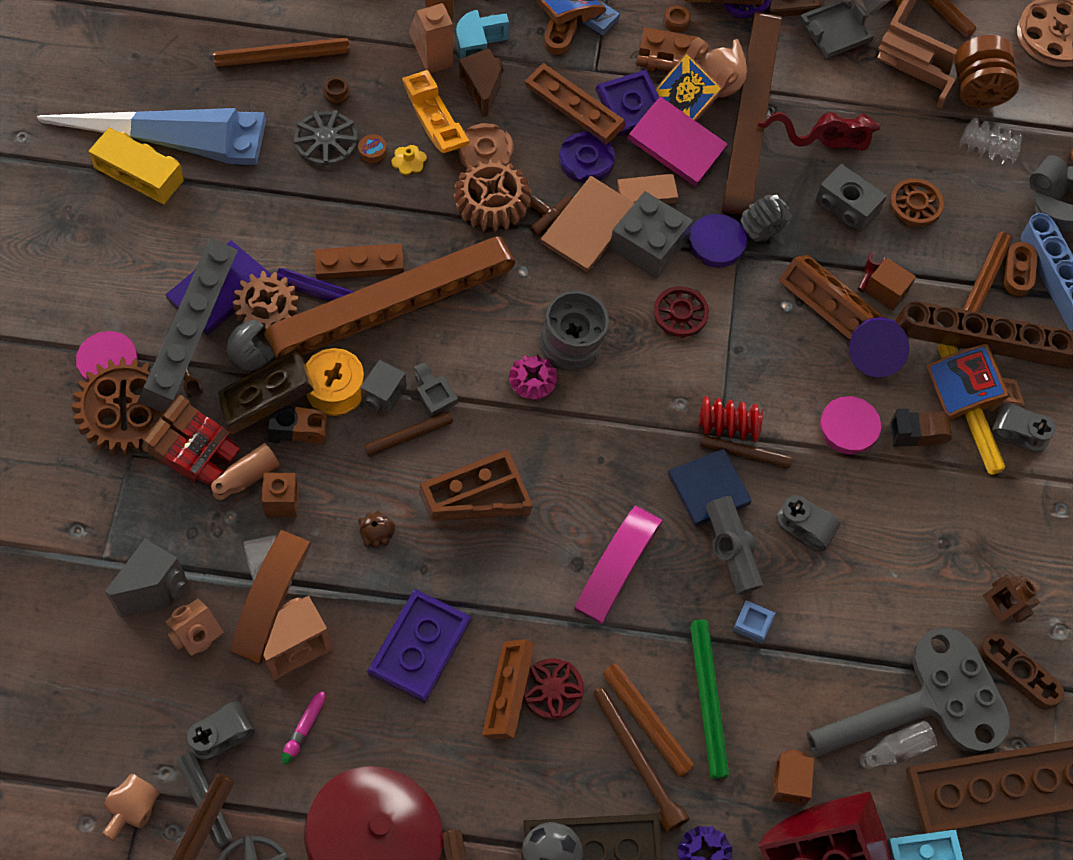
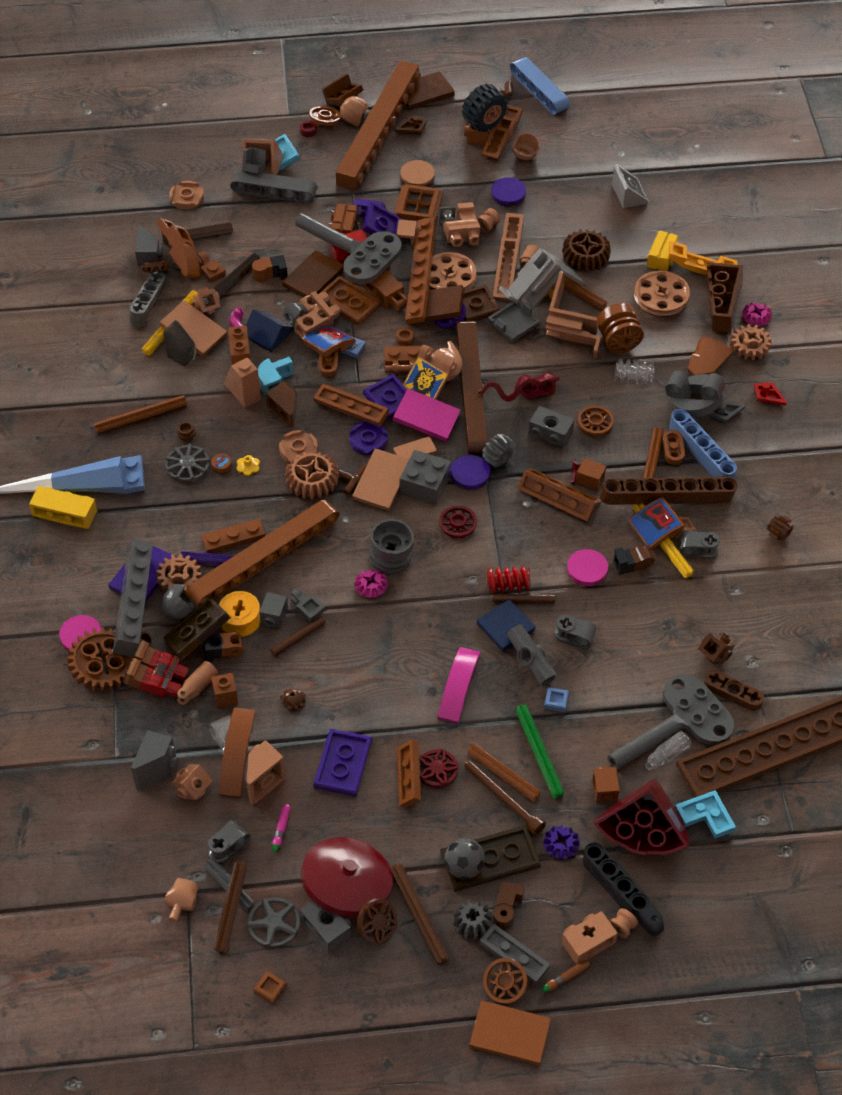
camera: 10 degrees left, 10 degrees down
(433, 114) = (255, 432): light orange slope -> none
(477, 491) = (355, 658): dark orange wedge -> none
(879, 347) = (593, 514): dark purple tile -> none

